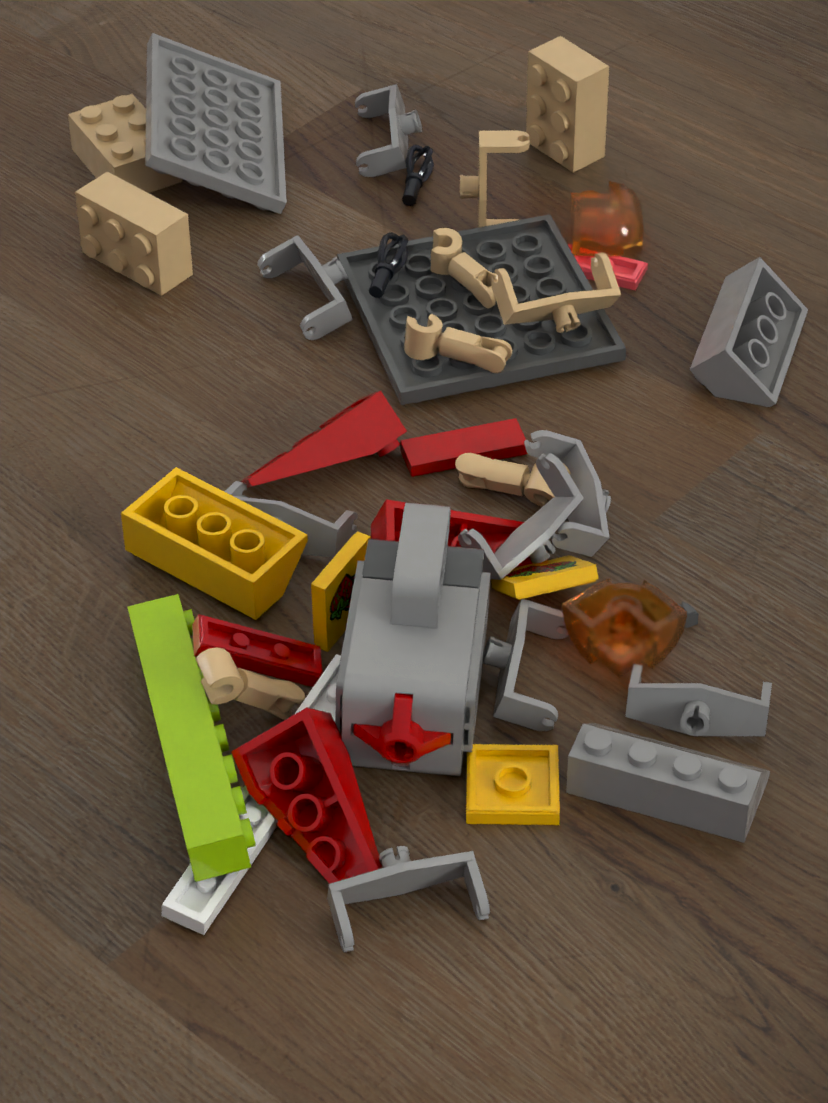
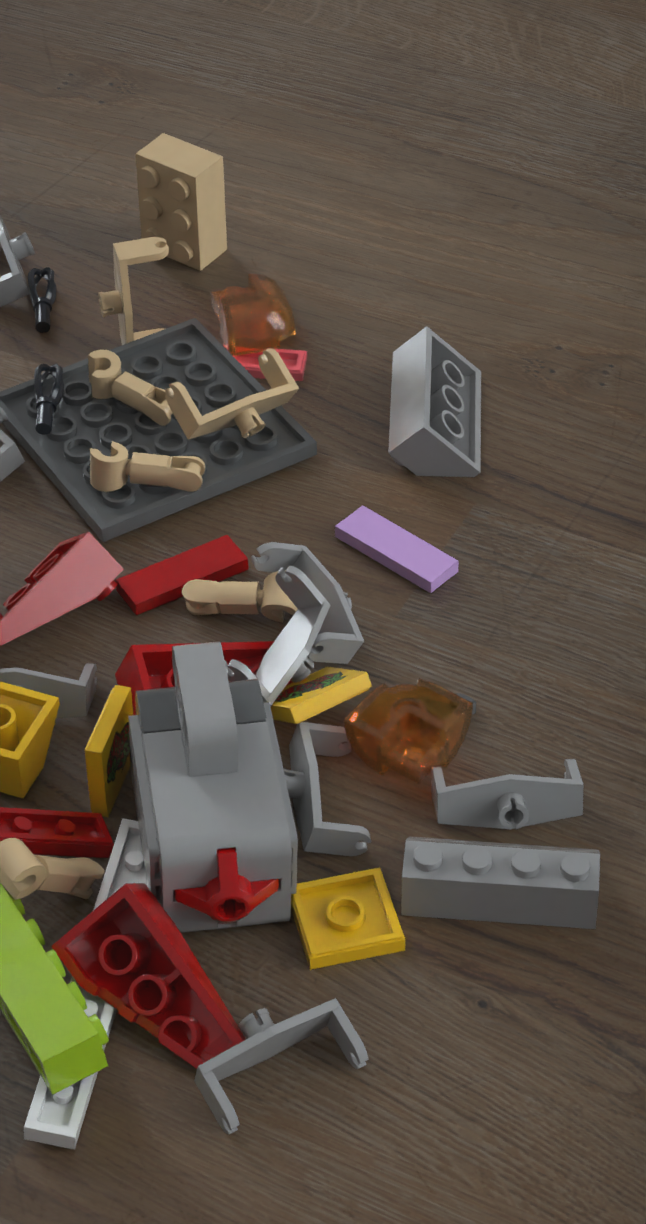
camera: 15 degrees left, 0 degrees up
(671, 460) = (396, 549): none -> lavender tile

